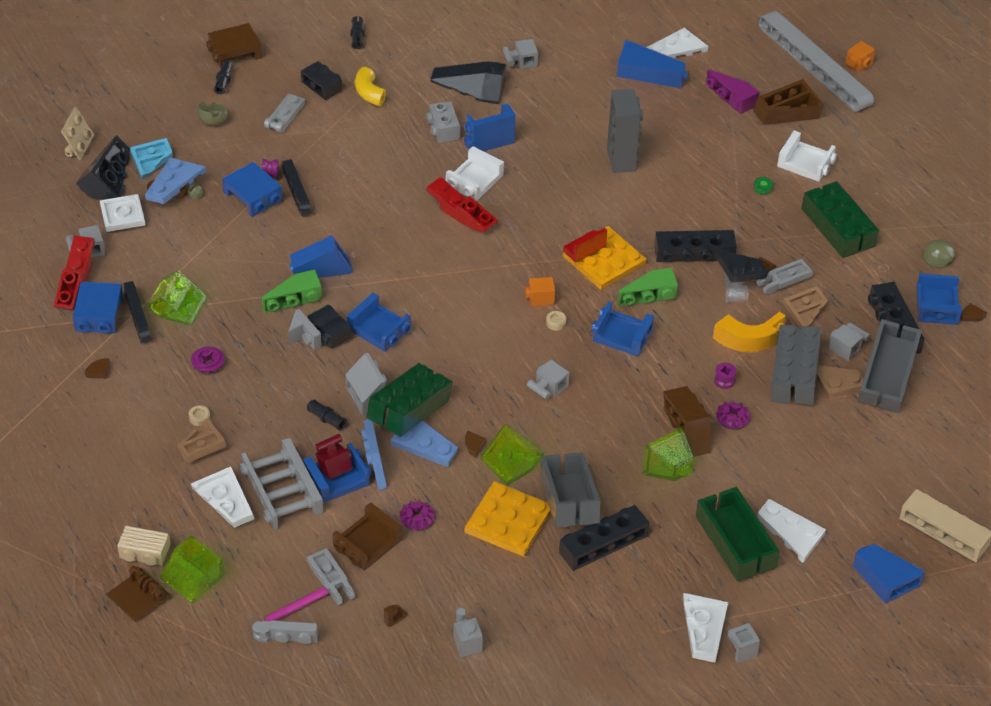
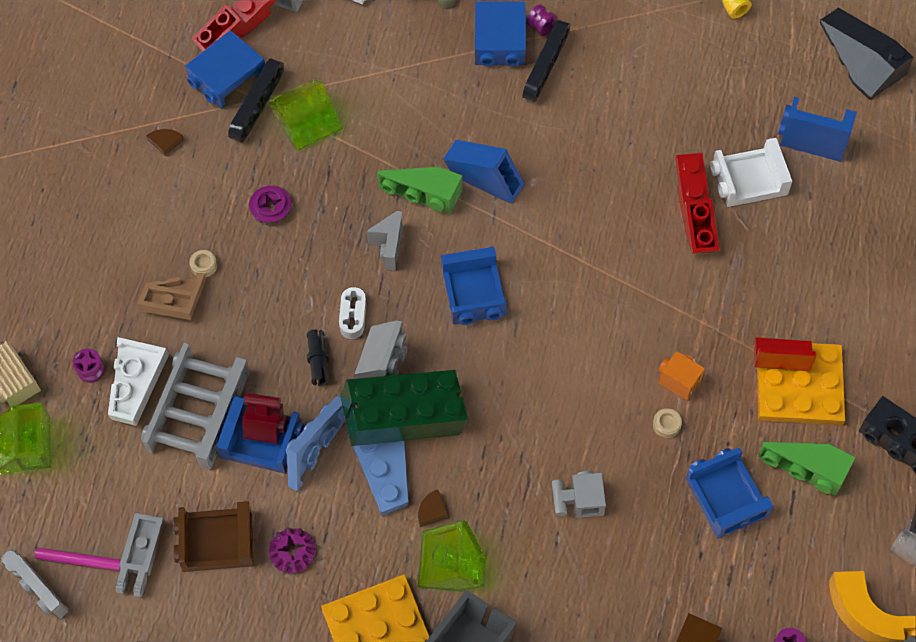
camera: 45 degrees right, 15 degrees up
(191, 504) = (83, 360): none -> magenta wheel
(318, 383) = (358, 313): none -> white beam
(332, 327) = (418, 253): black brick -> none
(443, 122) = (779, 84): light grey brick -> none

